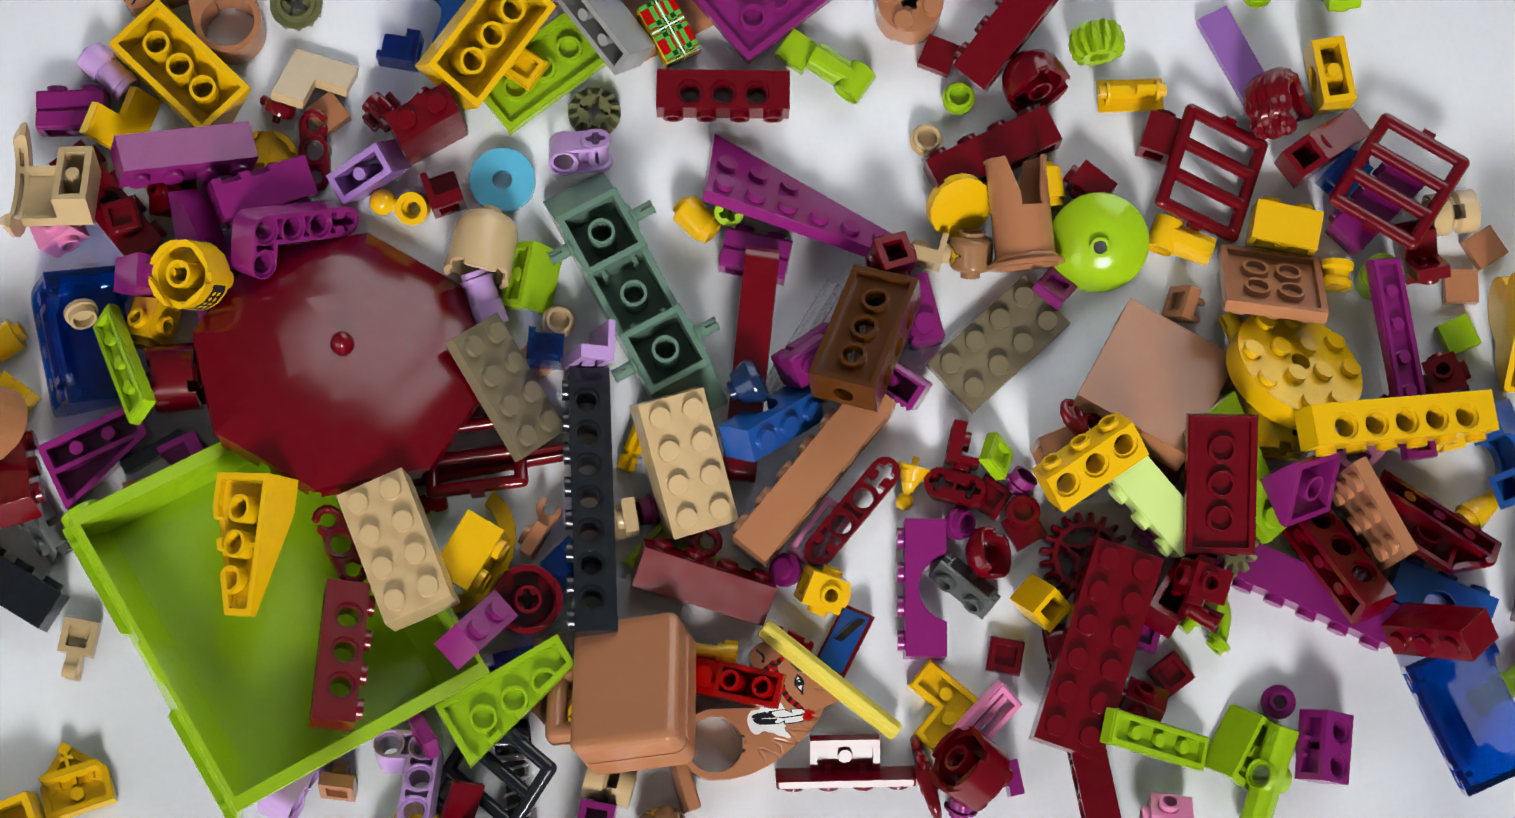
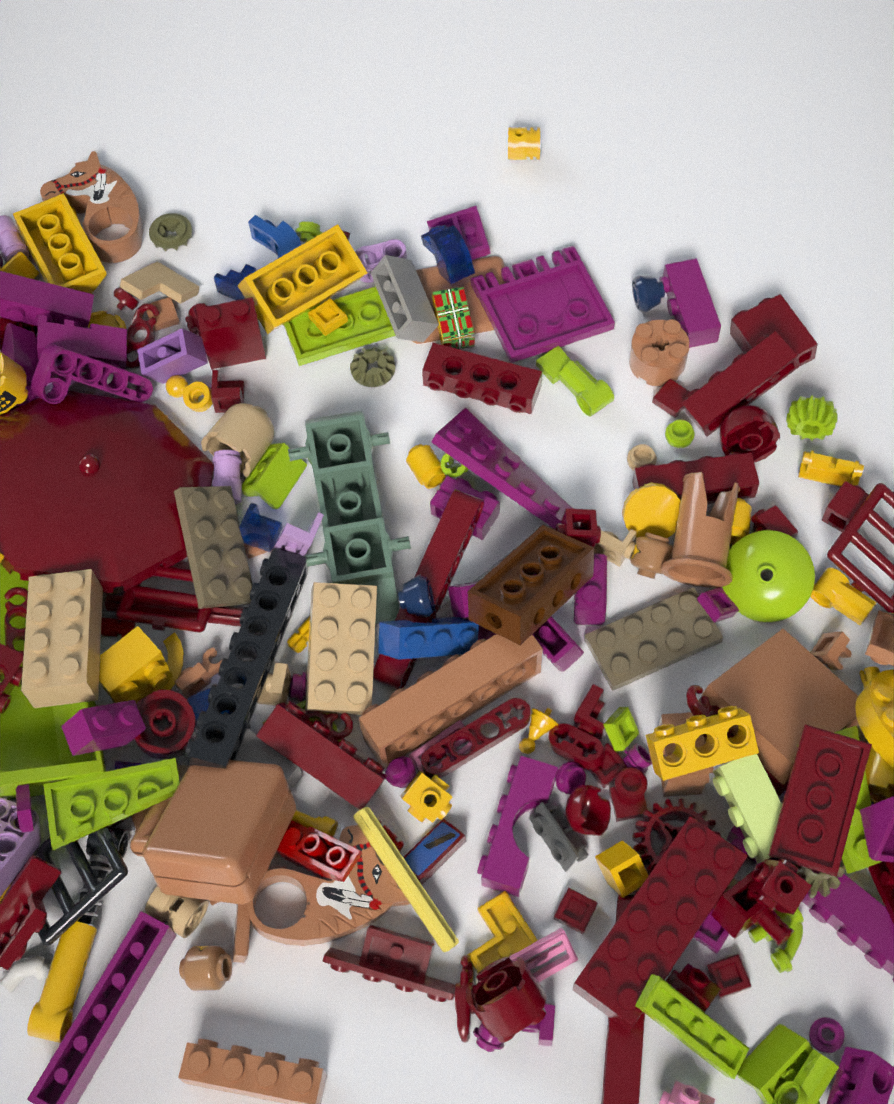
camera: 25 degrees right, 15 degrees down
(502, 162) = (280, 383): medium azure tile -> none
(558, 320) = (283, 512): tan plate -> none
(576, 152) = (353, 392): lavender piece -> none

